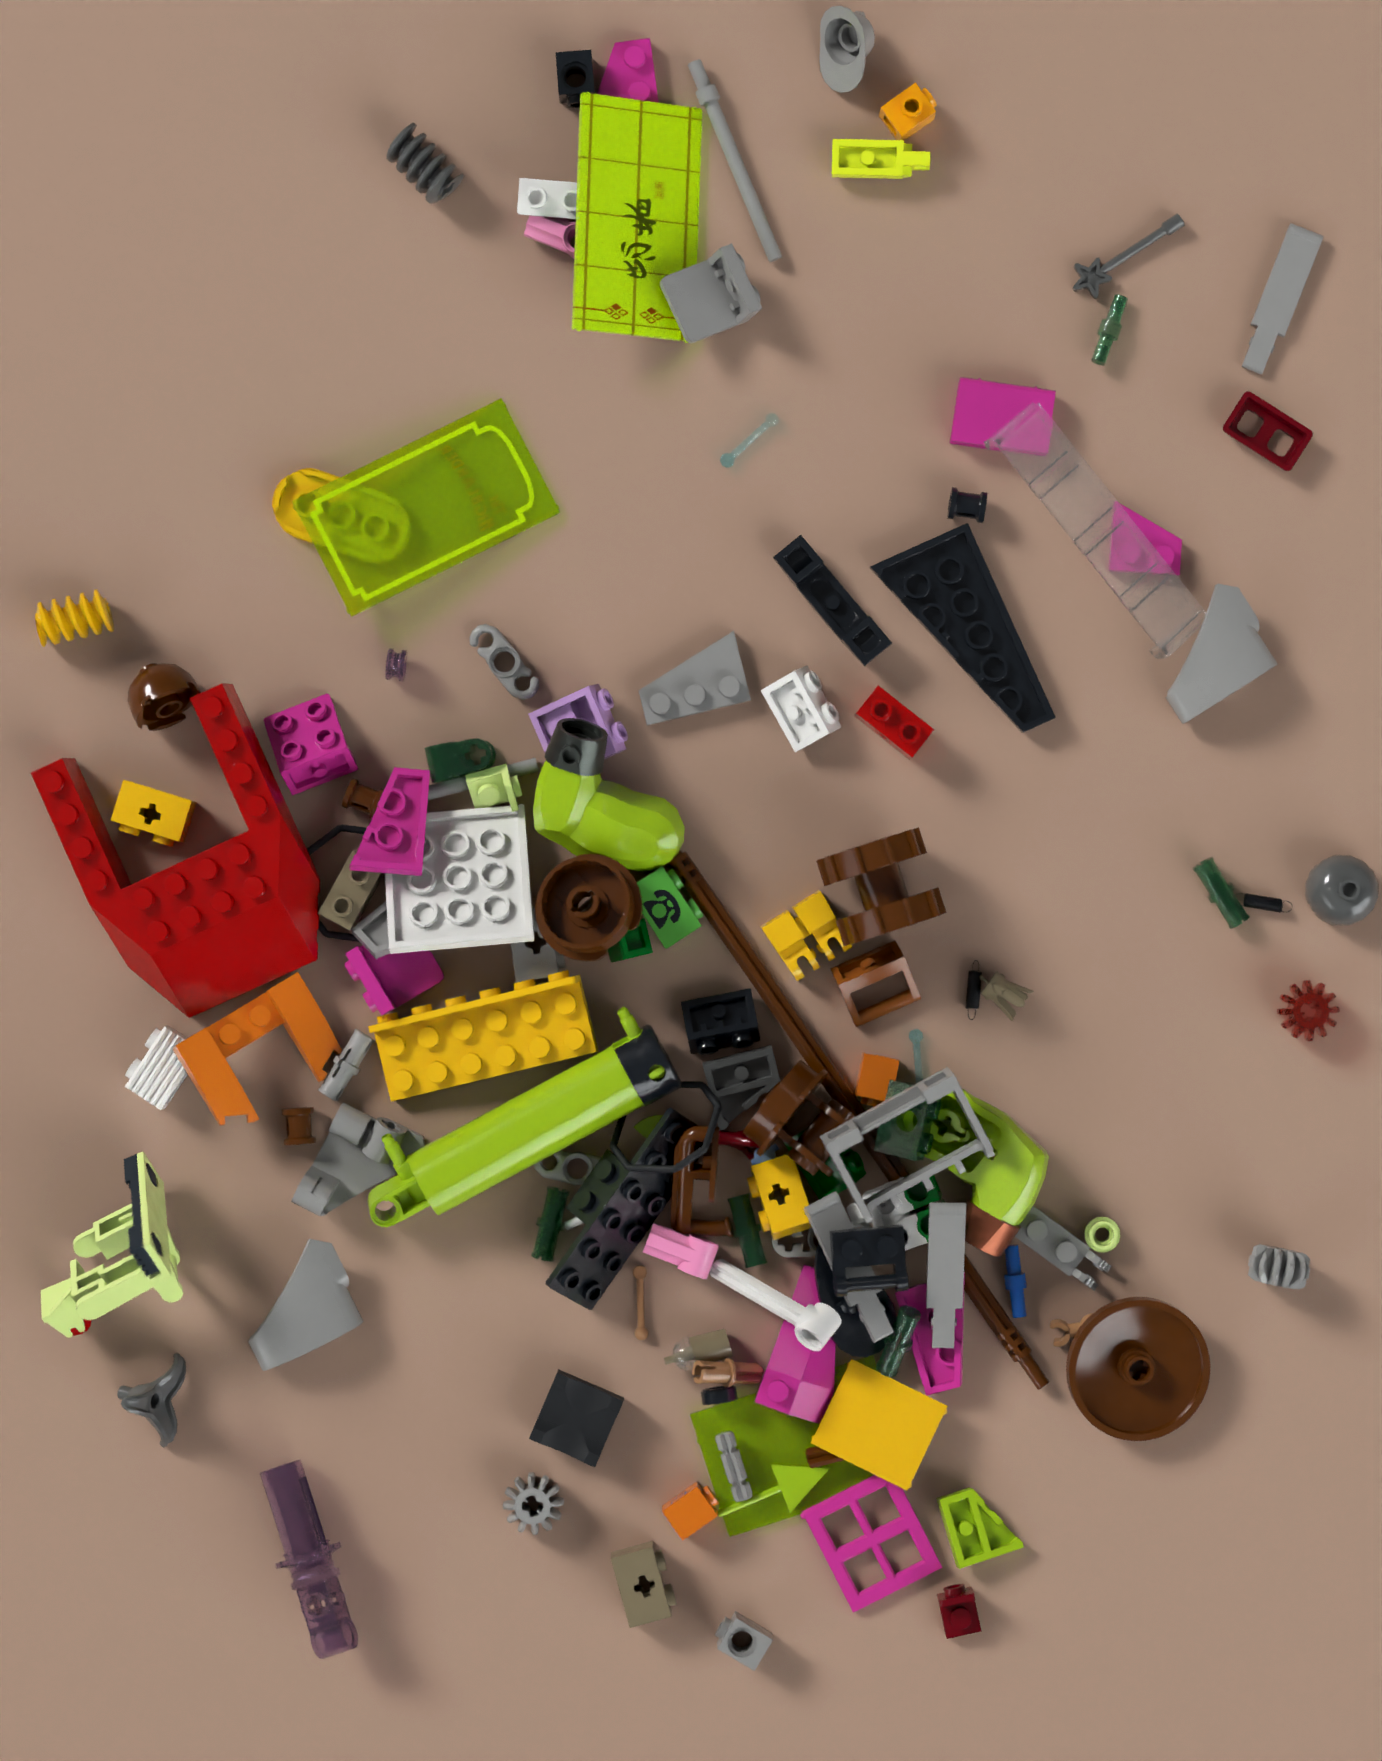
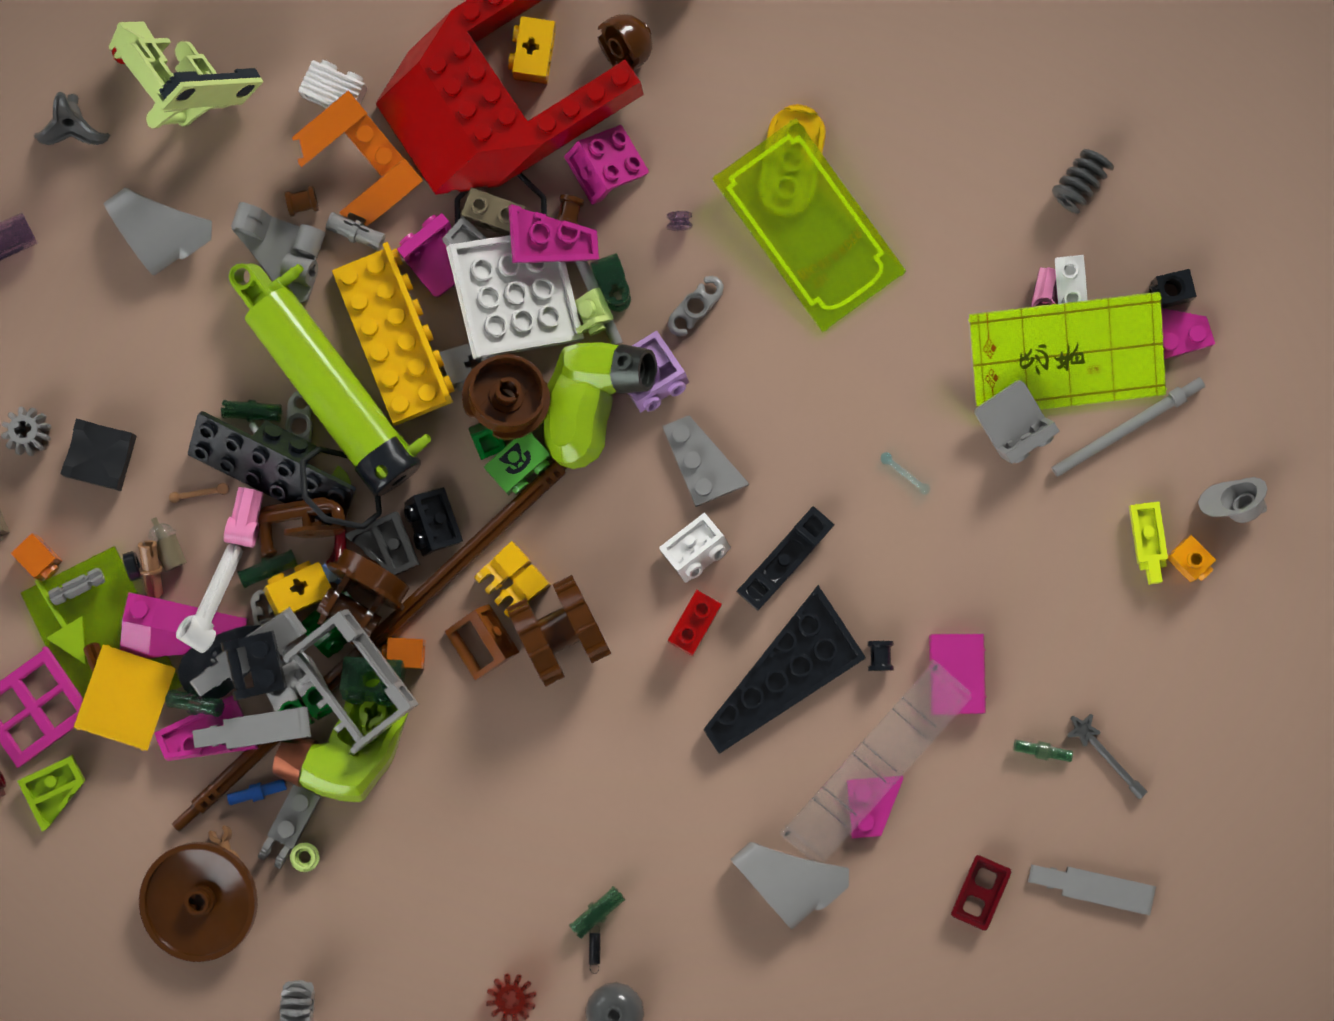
camera: 85 degrees right, 5 degrees down
(916, 1036) = (443, 681): clear light blue hinge -> none
(973, 990) = (488, 722): black piece -> none
(1000, 990) = (488, 747): dark tan piece -> none

